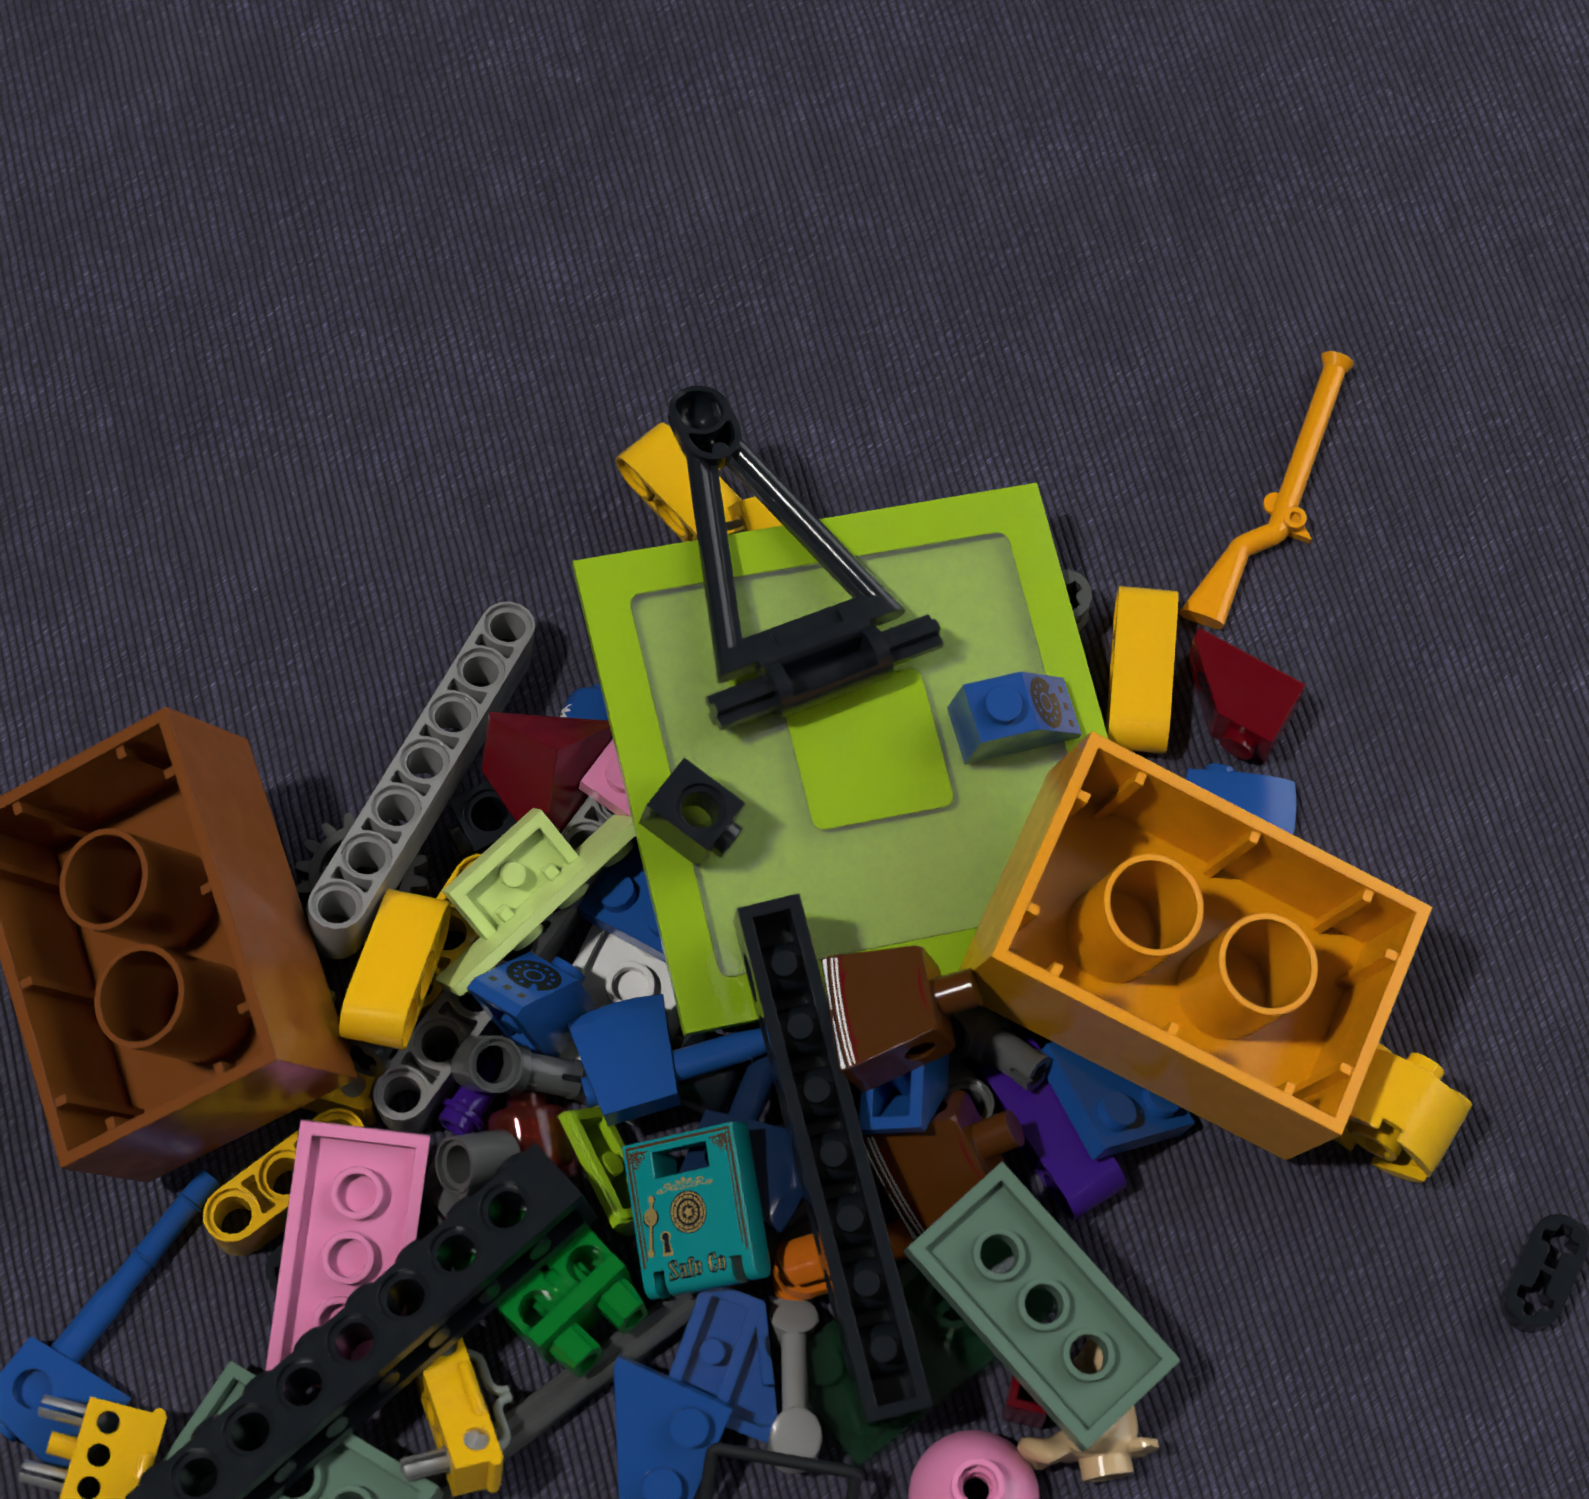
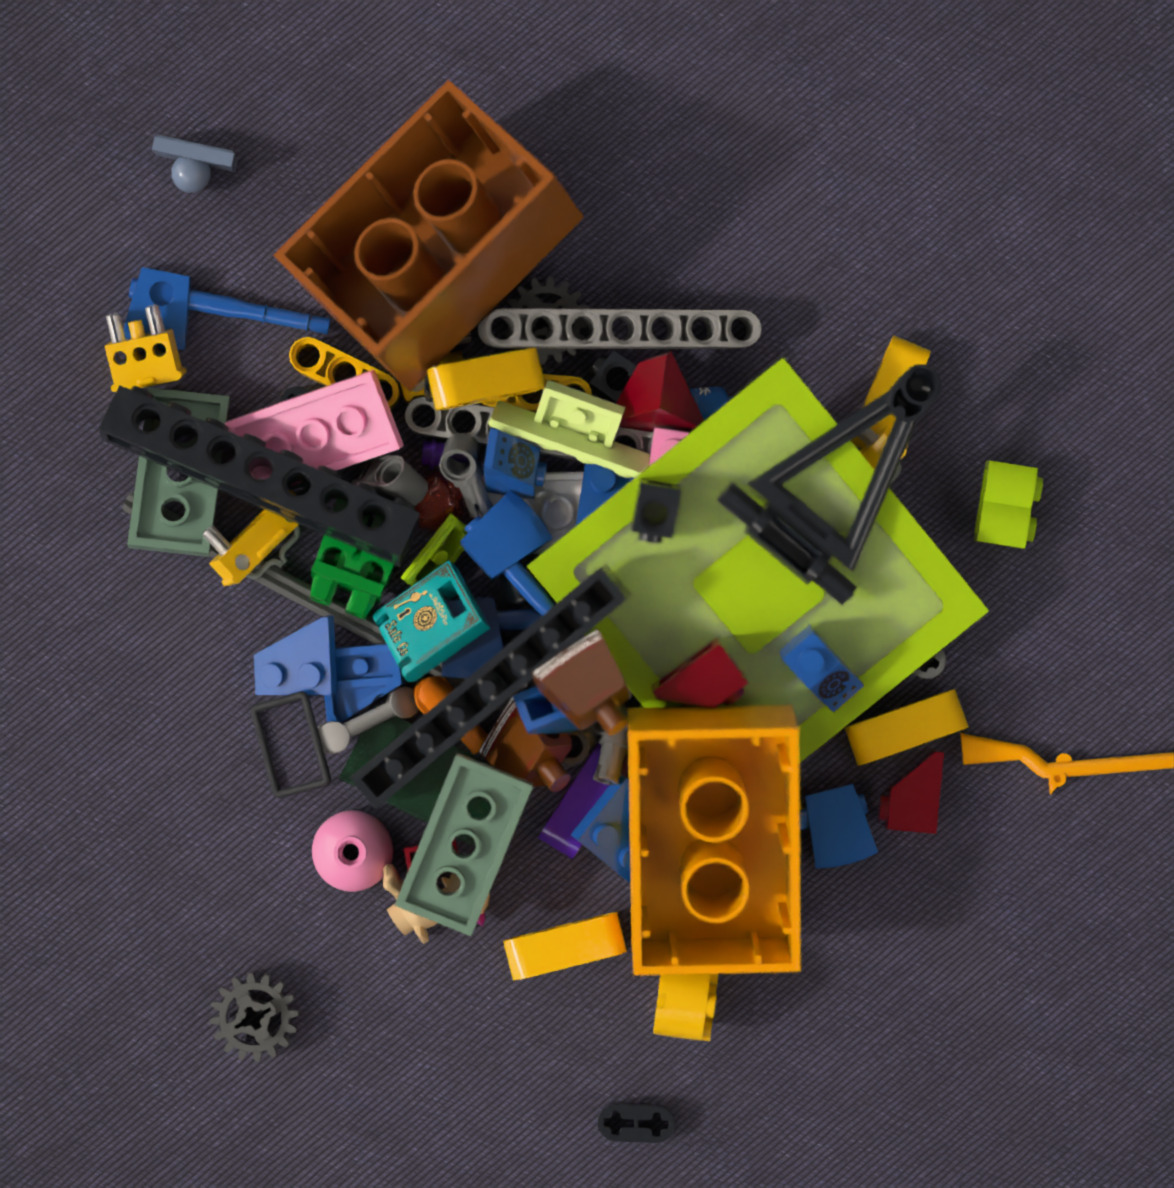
camera: 65 degrees right, 20 degrees up
(904, 422) = (1006, 504): none -> lime brick
(955, 866) = (704, 678): none -> dark red slope
(1247, 1253) = (565, 946): none -> yellow beam

